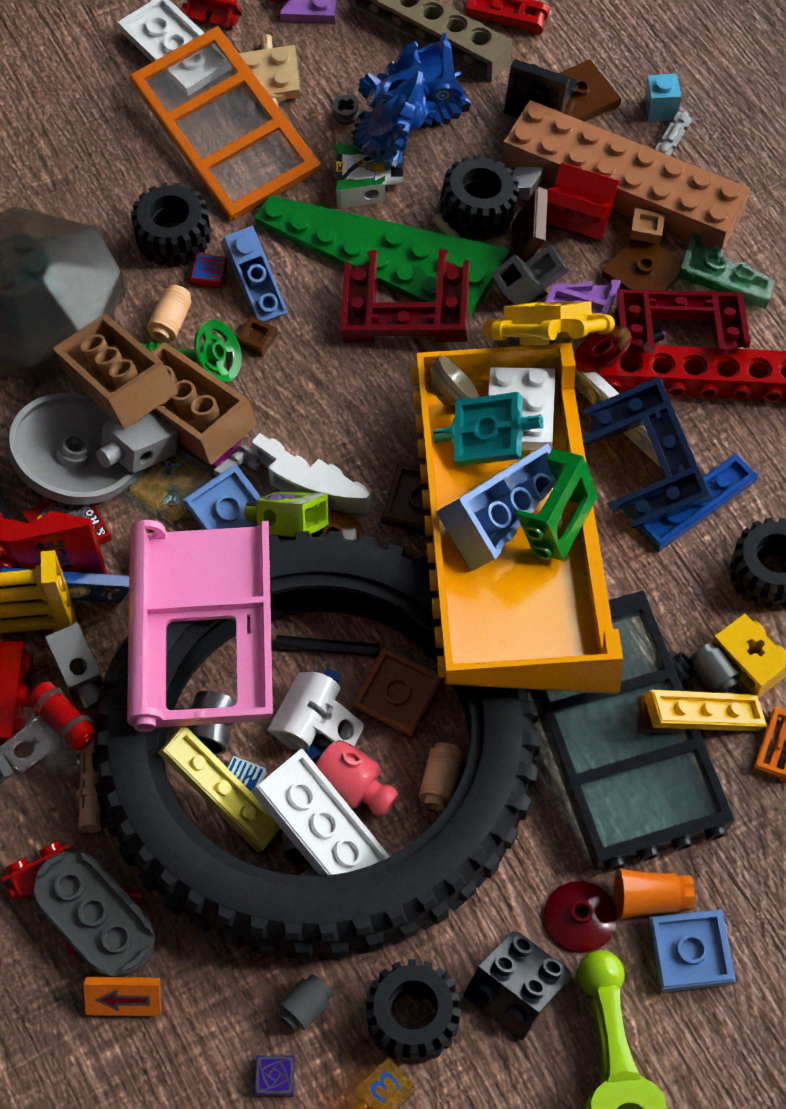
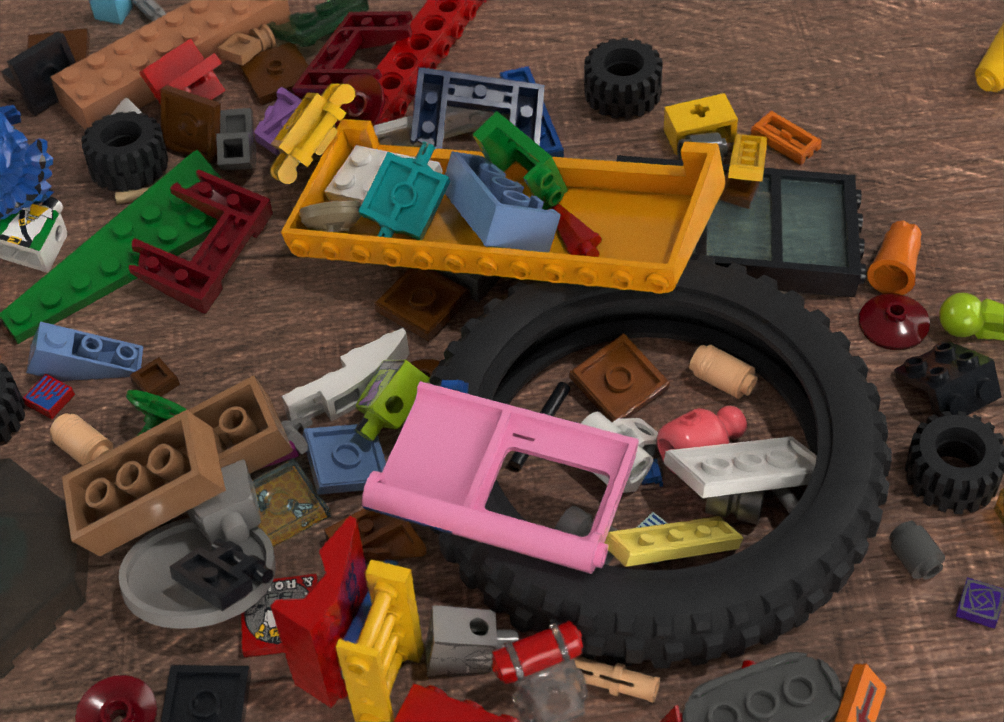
camera: 65 degrees left, 10 degrees down
(49, 461) = (220, 575): none -> black plate
(282, 550) = (457, 385): none -> blue piece
(499, 586) = (576, 235): none -> red bar
(676, 239) = (265, 35): none -> medium nougat bush
(691, 951) = (956, 251): medium blue plate -> none

